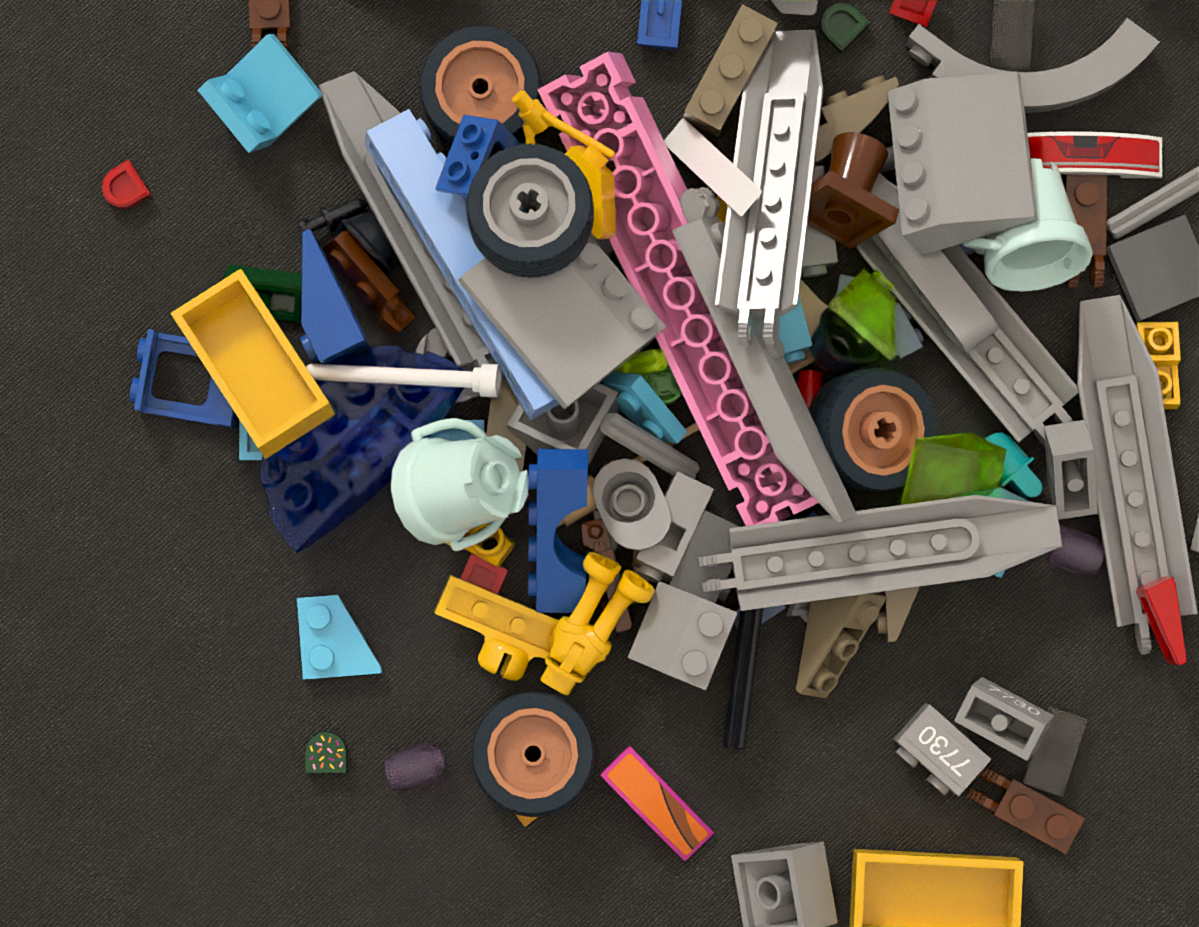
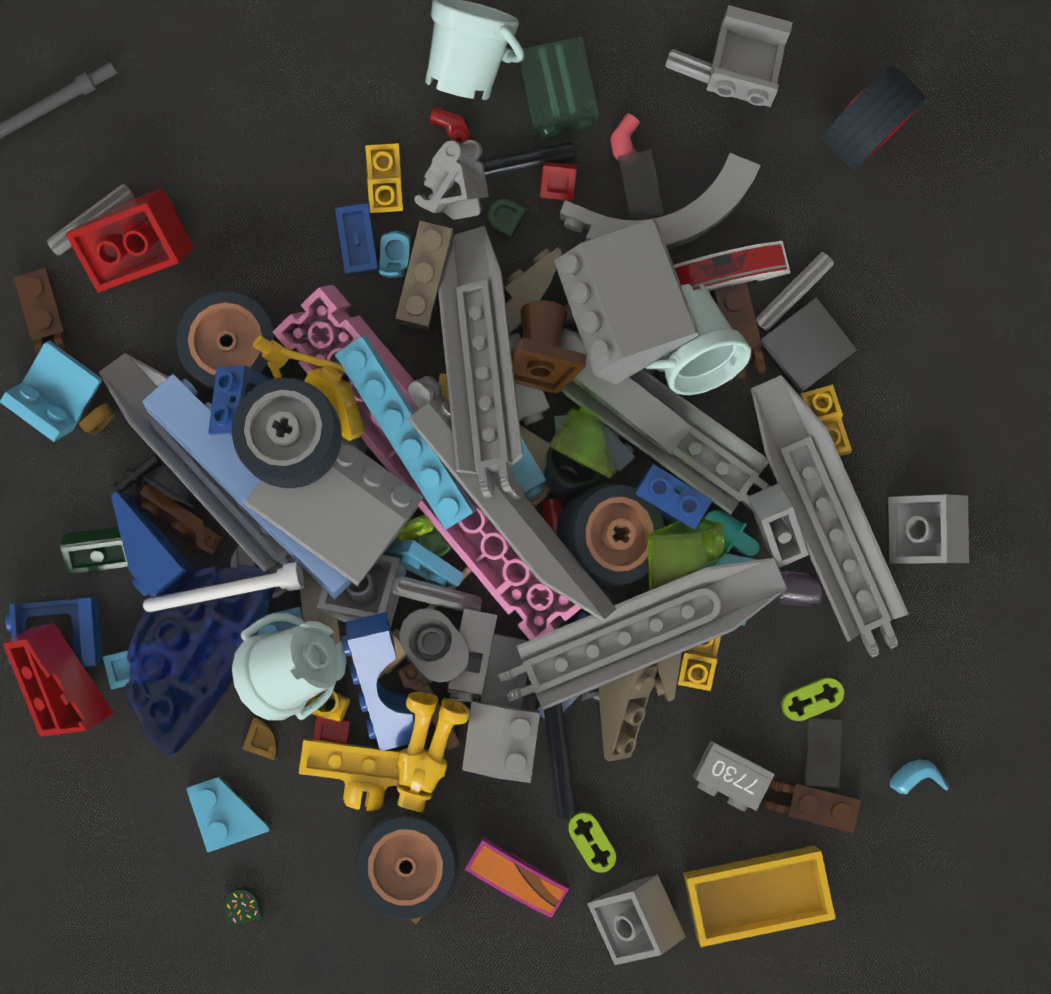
camera: 20 degrees left, 0 degrees up
(179, 433) = (55, 682): none -> red wedge
(253, 363) = (97, 613): yellow piece -> none
(304, 140) = (97, 419): none -> pearl gold tile
(398, 564) = (261, 739): none -> pearl gold tile
(415, 766) = (315, 899): clear purple brick -> none
(654, 220) = (391, 413): none -> medium azure plate
(701, 36) = (394, 254): none -> medium azure hair
(712, 167) = (429, 358): white sticker -> none
(765, 781) = (585, 846): none -> lime beam
(935, 609) = (699, 665): none -> yellow slope
(954, 409) = (673, 497): none -> blue window
(1004, 718) = (776, 738): light grey brick -> none
(1059, 694) = (816, 706): none -> lime beam
(1154, 802) = (913, 773): none -> medium azure hair
(1162, 610) = (881, 621): red slope -> none

